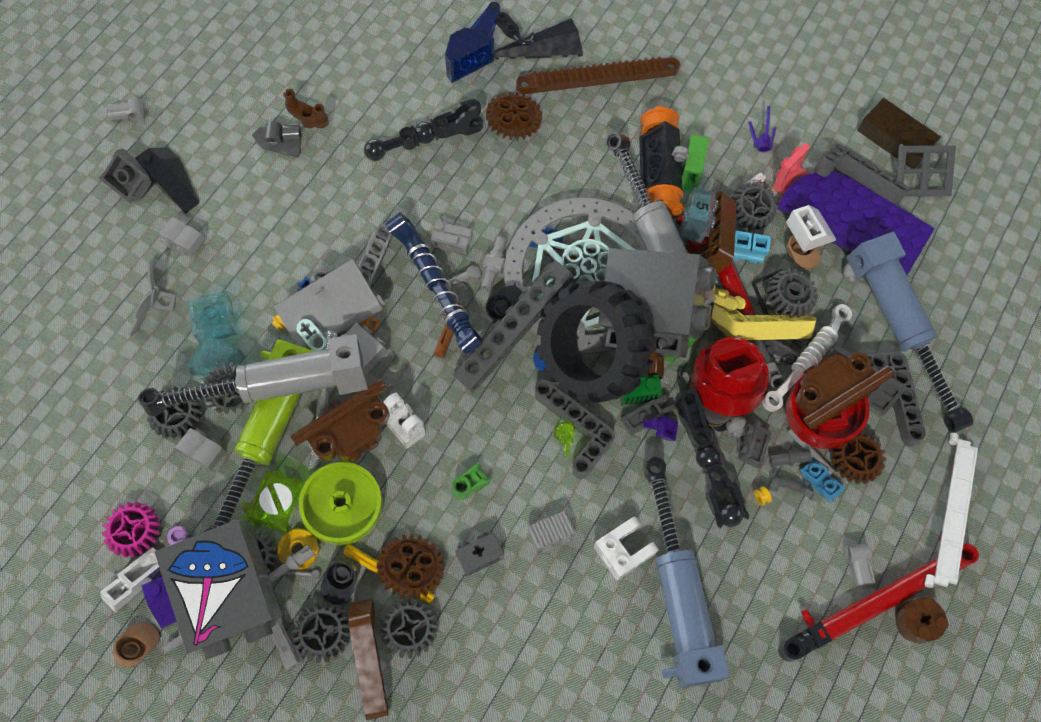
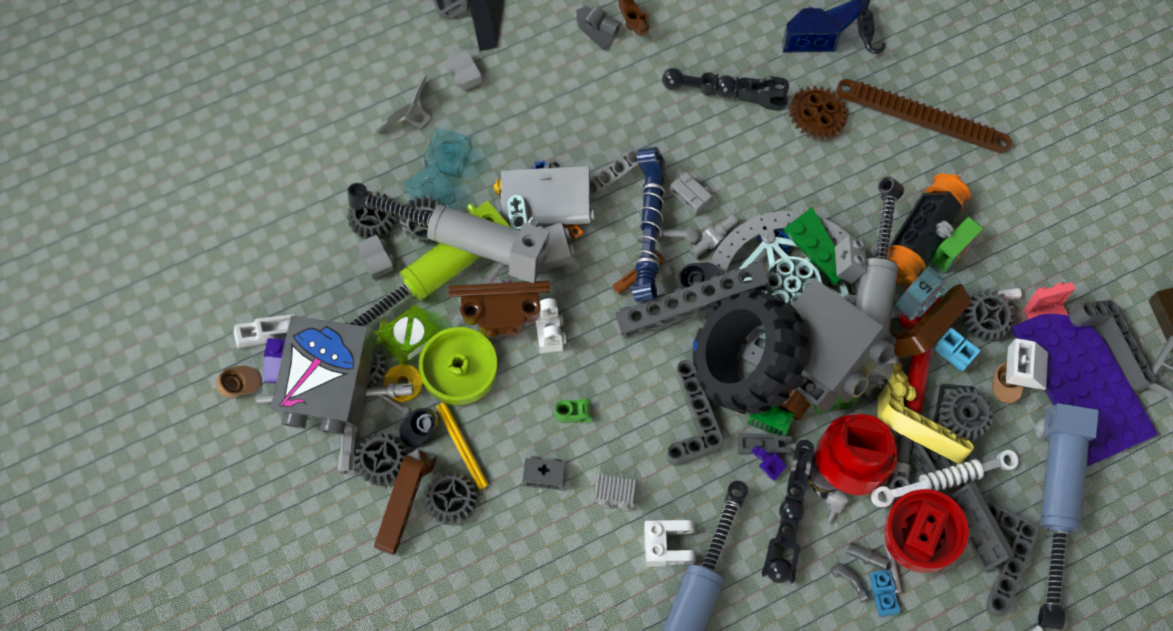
camera: 35 degrees right, 0 degrees up
(115, 534) = (284, 276): dark pink gear -> none
(177, 534) = (318, 313): lavender tile -> none
(427, 575) = (474, 434): reddish brown gear -> none
(556, 40) = (905, 62): black wedge -> none
(565, 434) = (680, 418): clear neon green piece -> none
(584, 222) = (814, 242): none -> green wing
(623, 218) = (850, 259): none -> light grey brick
(754, 444) = (842, 525): dark grey bracket -> none
(762, 496) = (819, 573): yellow bush -> none
(765, 141) = (1043, 263): dark purple plant -> none
(837, 386) = (940, 514): reddish brown brick -> none
(865, 449) = (947, 596): reddish brown gear -> none

